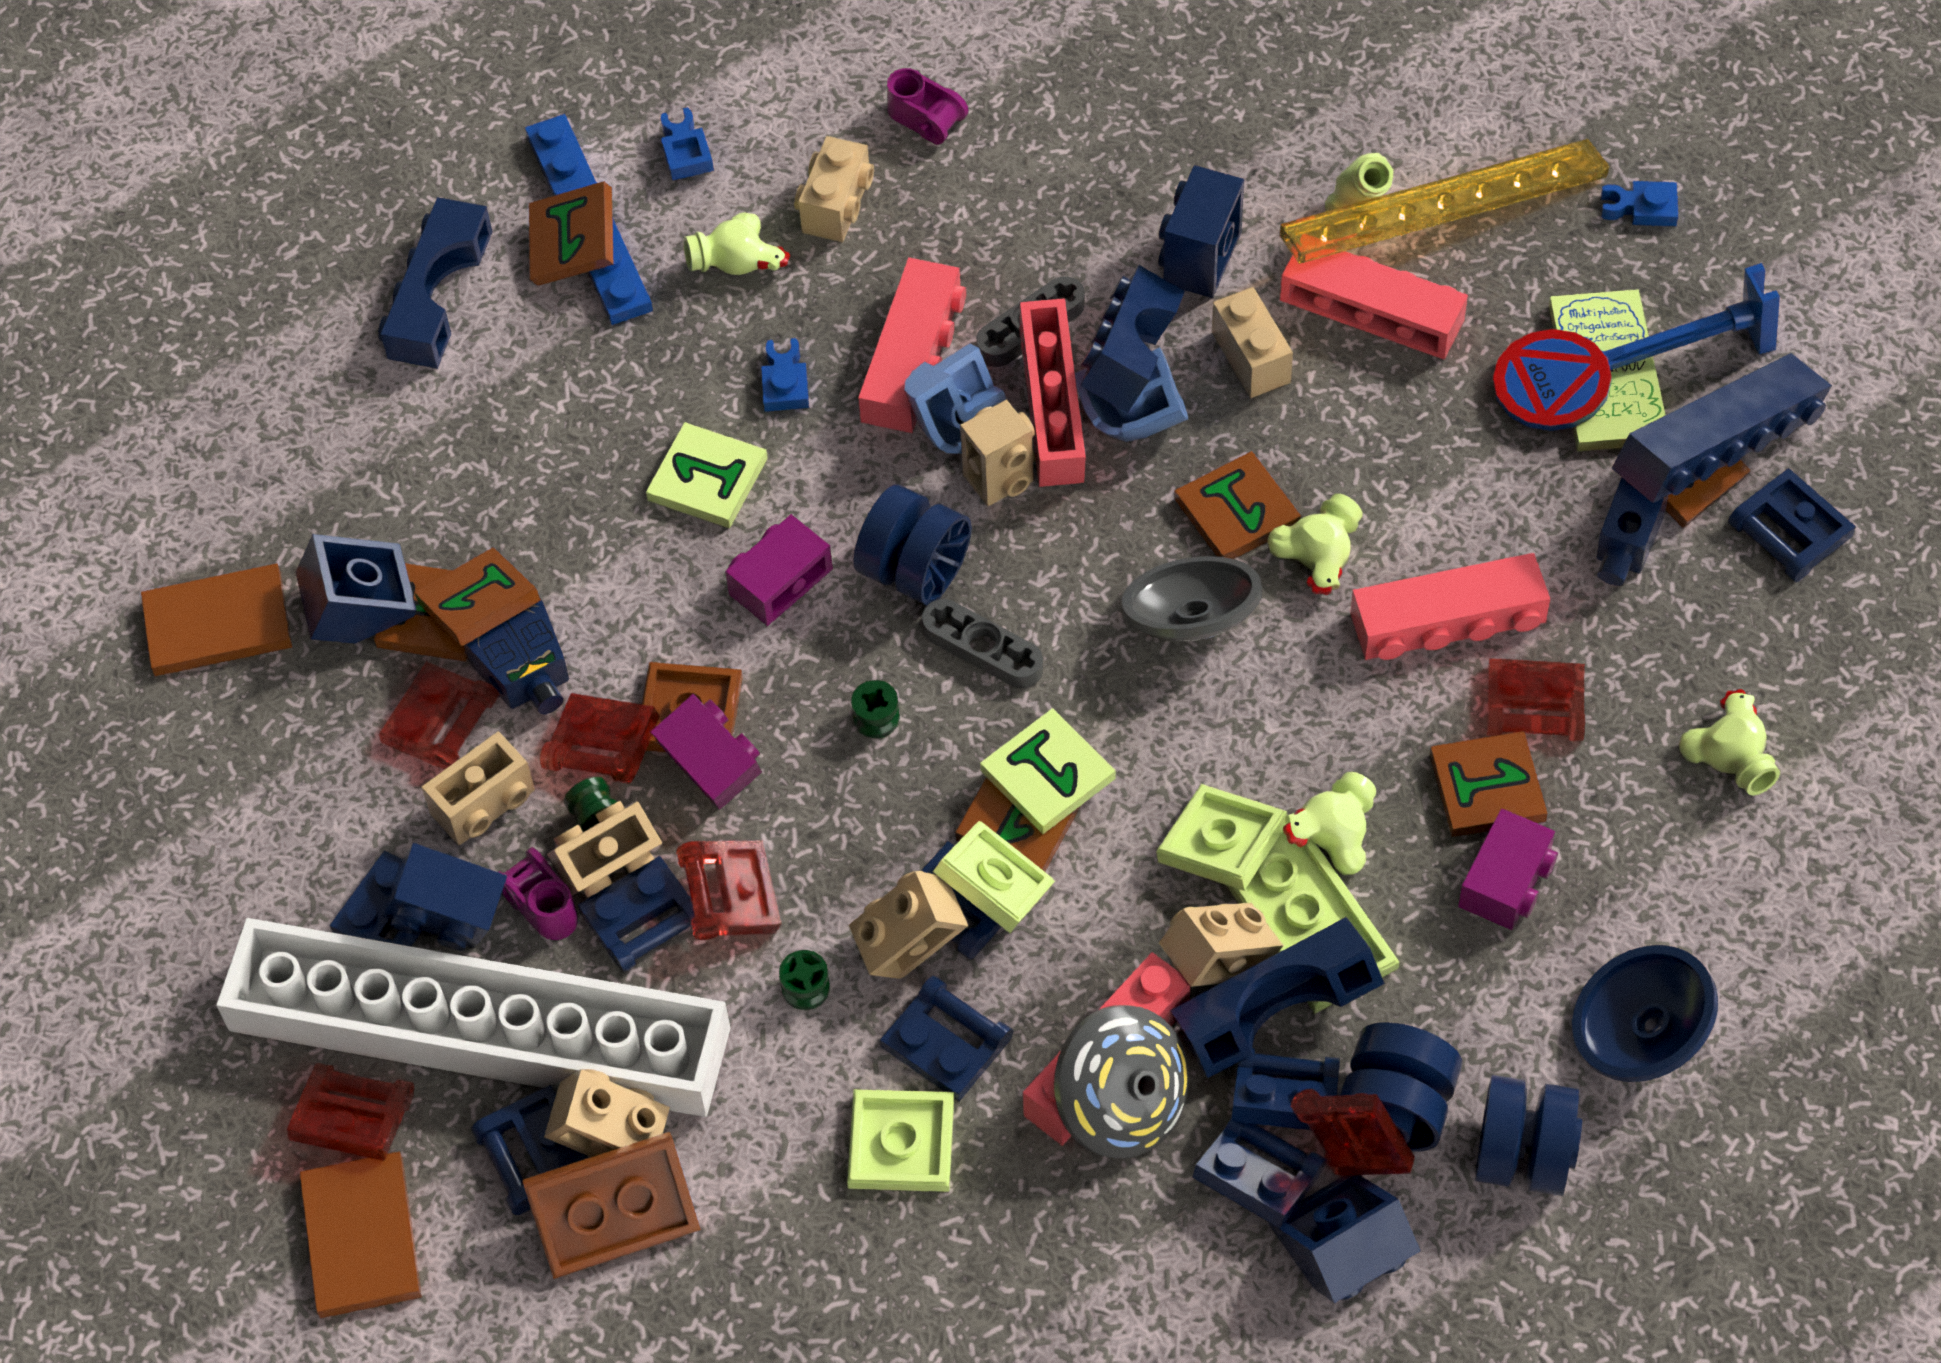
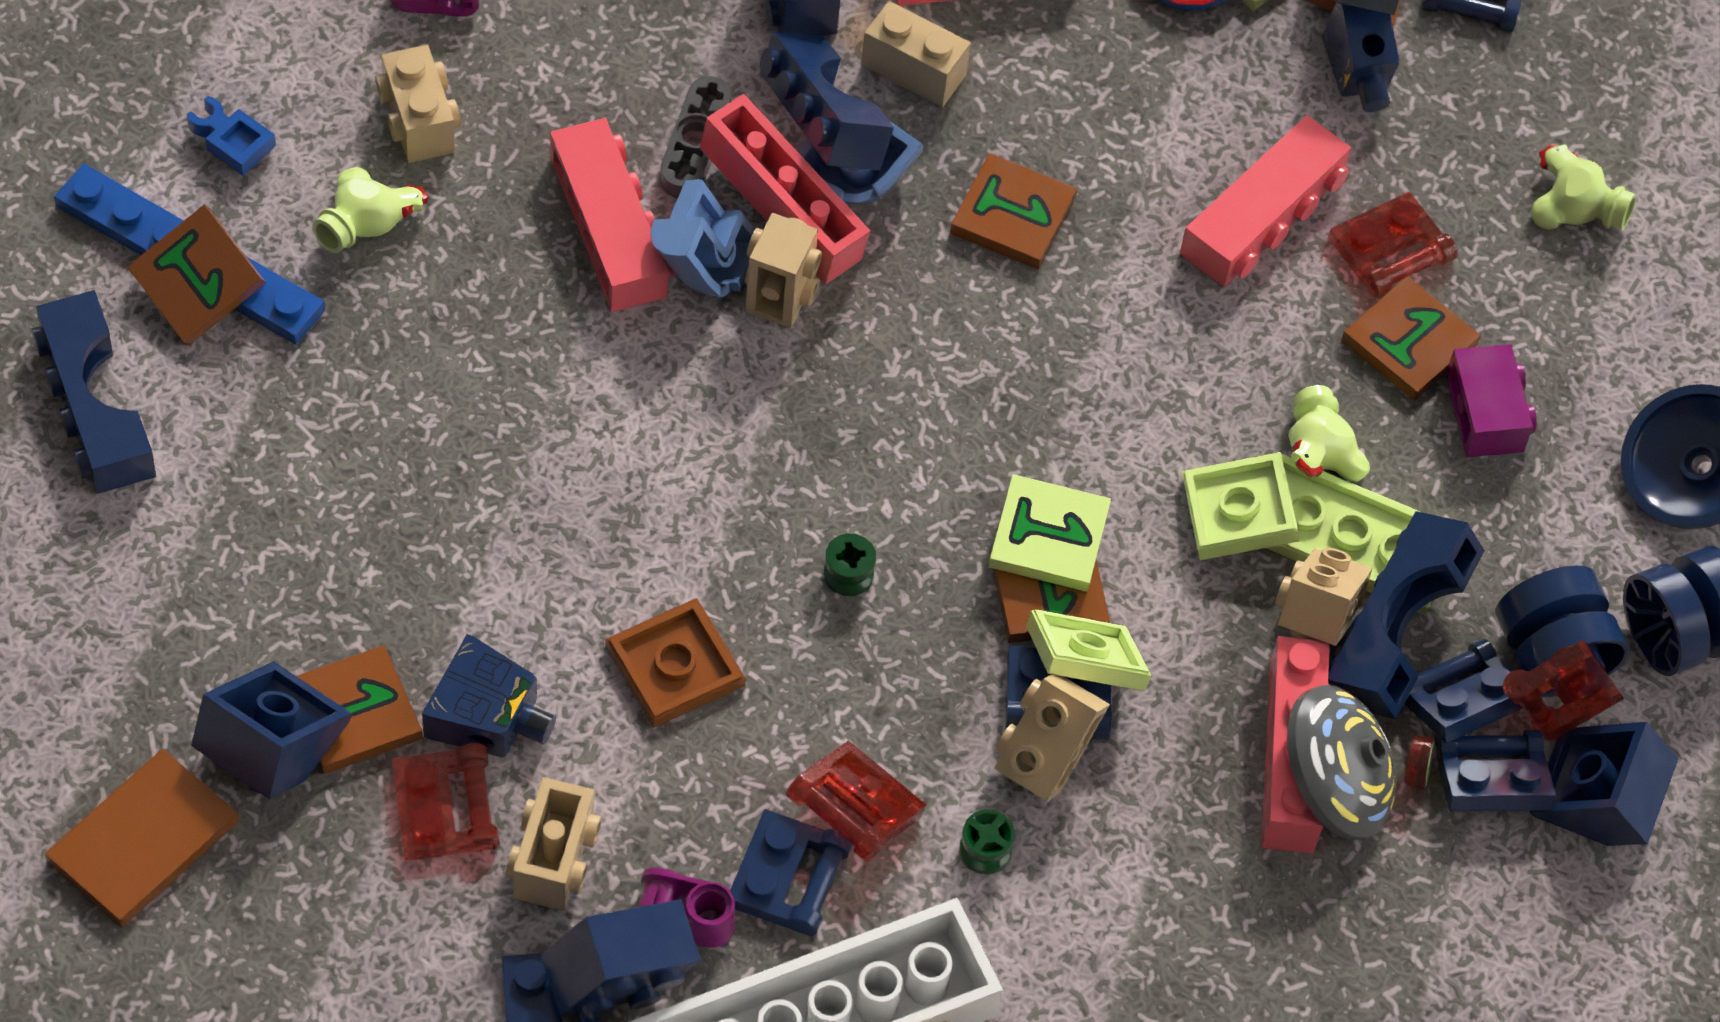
camera: 45 degrees left, 0 degrees up
(477, 596) = (404, 666): dark orange tile -> none
(587, 800) = (668, 799): dark green wheel -> none
(603, 726) = (618, 720): clear red plate -> none
(617, 841) = (719, 827): tan brick -> none
(707, 475) = (511, 437): yellowish green tile -> none
(707, 750) = (739, 686): magenta brick -> none
(778, 569) = (658, 486): magenta brick -> none
(785, 380) = (510, 312): blue plate -> none
(901, 1140) = (1179, 931): yellowish green tile -> none
(912, 544) = (786, 394): dark blue wheel -> none
(935, 1049) = (1145, 835): dark blue plate -> none
(974, 625) = (906, 438): dark grey beam -> none
(1192, 598) = (1054, 308): dark grey dish -> none
(1201, 1124) = (1419, 762): none -> clear red tile
(1320, 541) = (1114, 202): yellowish green animal -> none

